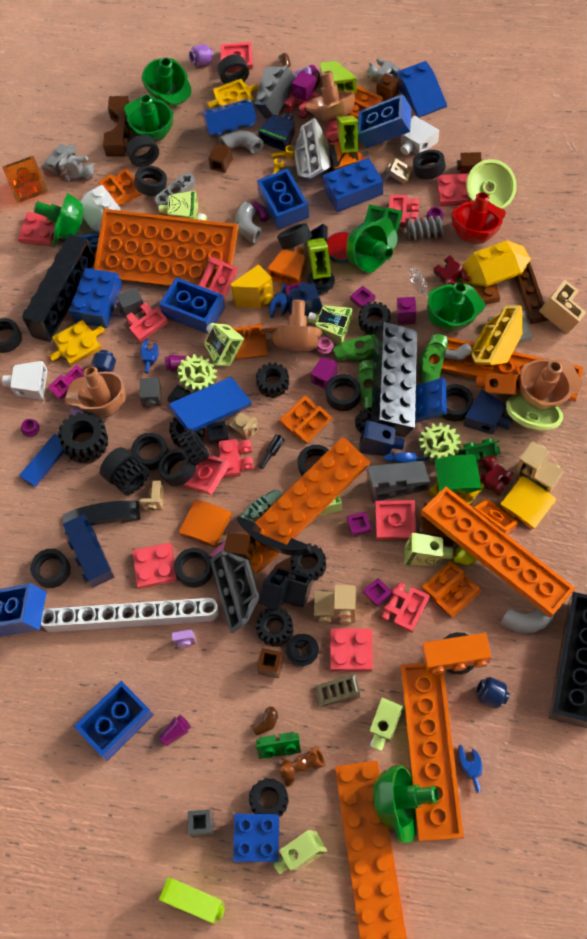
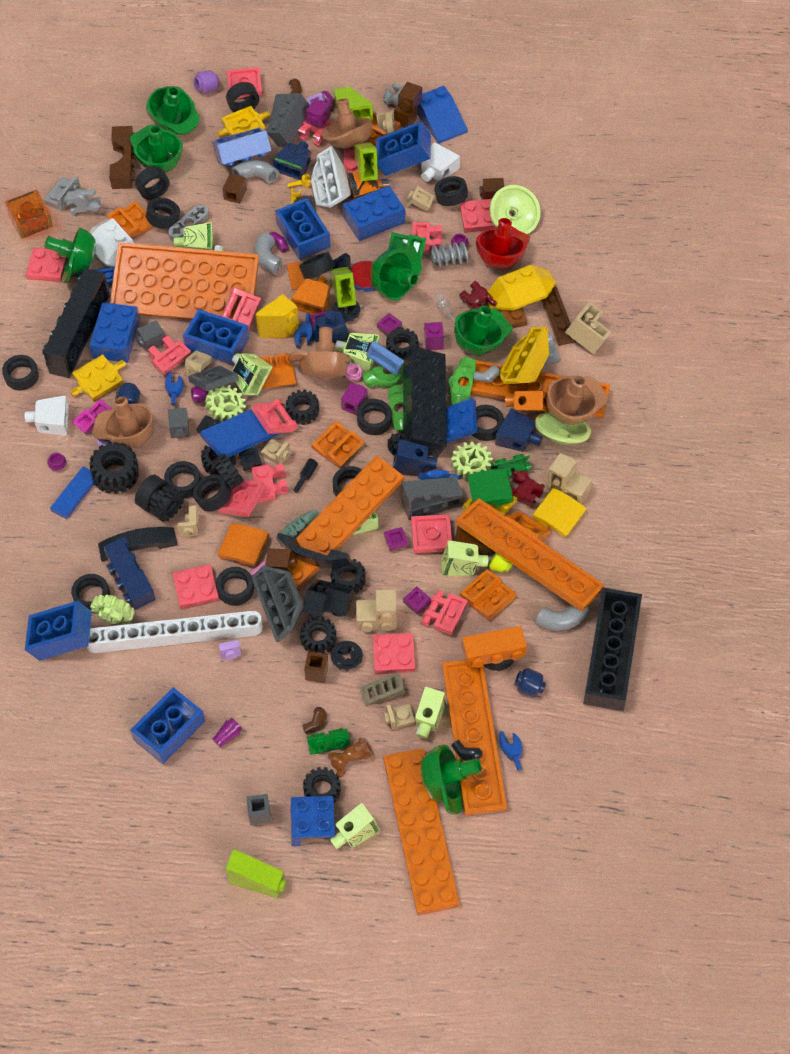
camera: 10 degrees left, 5 degrees down
(68, 589) = (112, 609): none -> yellowish green gear
(172, 331) = (196, 362): none -> tan bracket
(186, 347) = (213, 378): none -> dark grey tile
(239, 392) = (271, 421): none -> coral plate
(274, 246) = (295, 275): none -> orange sticker
(353, 722) = (399, 716): none -> tan bracket
(356, 333) = (385, 358): none -> medium blue tile
(369, 95) = (386, 121): none -> tan bracket
(392, 70) = (410, 96): none -> reddish brown brick
(423, 773) = (466, 753): none -> black arm

